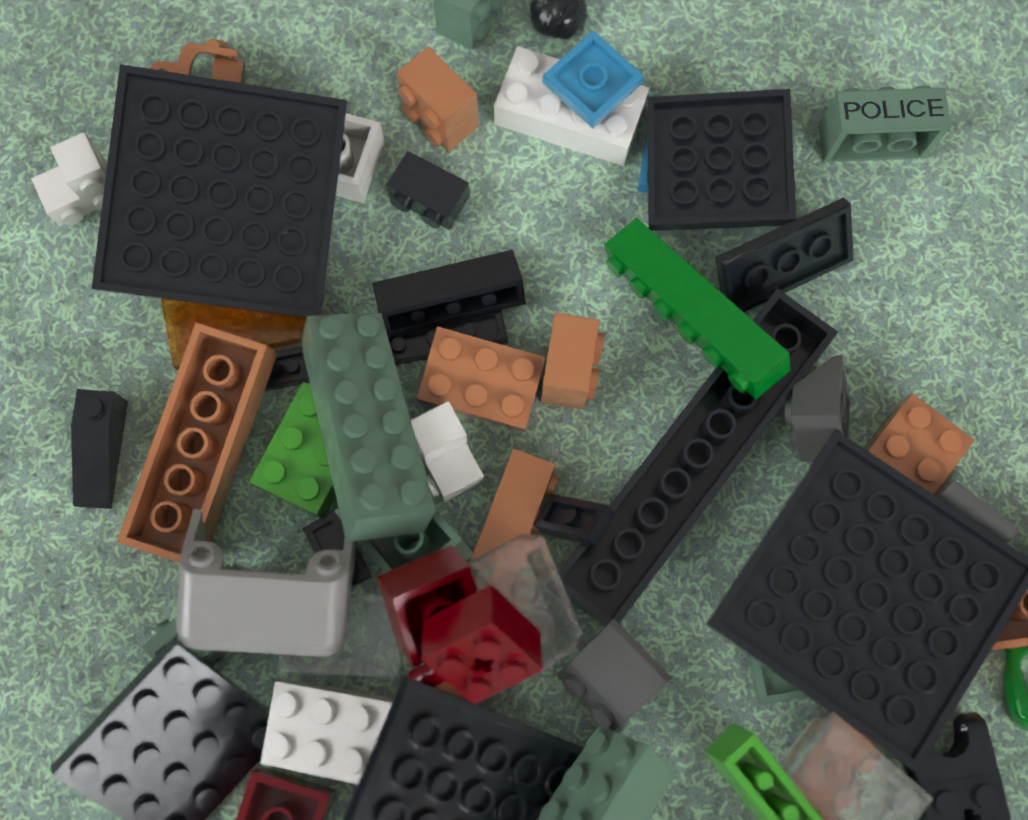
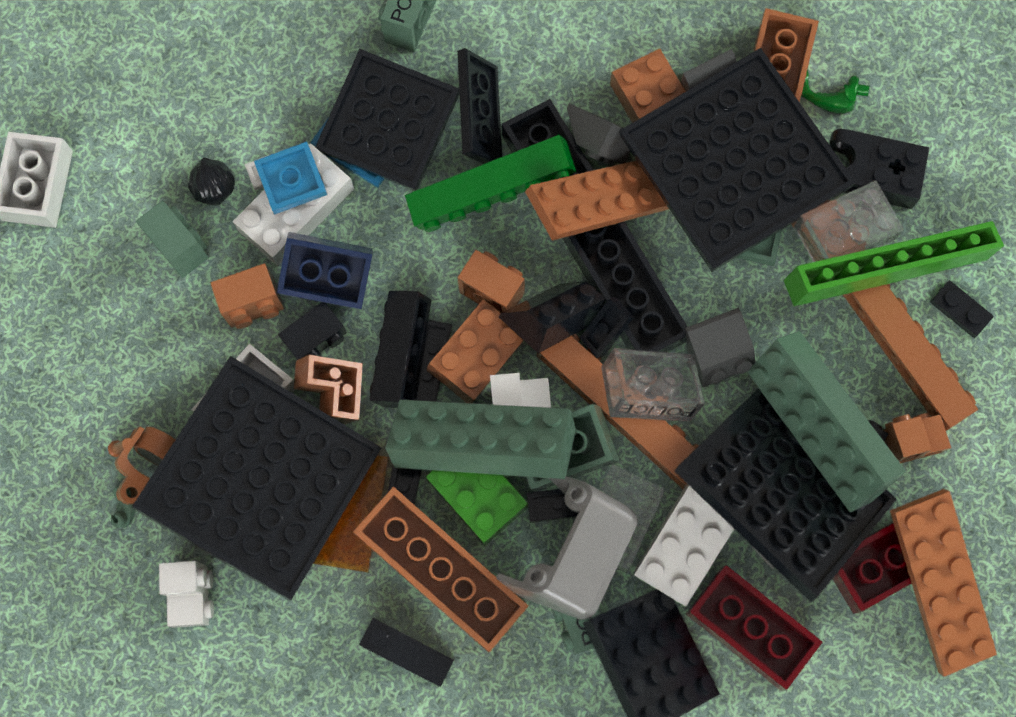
camera: 65 degrees left, 0 degrees up
(378, 240) = (335, 381): none -> nougat brick
(420, 591) = (633, 439): dark red brick -> none
(479, 646) = (674, 415): dark red brick -> none
(502, 166) = (324, 270): none -> dark blue brick
(563, 449) = (554, 314): none -> black slope
(727, 433) = (594, 199): none -> nougat plate

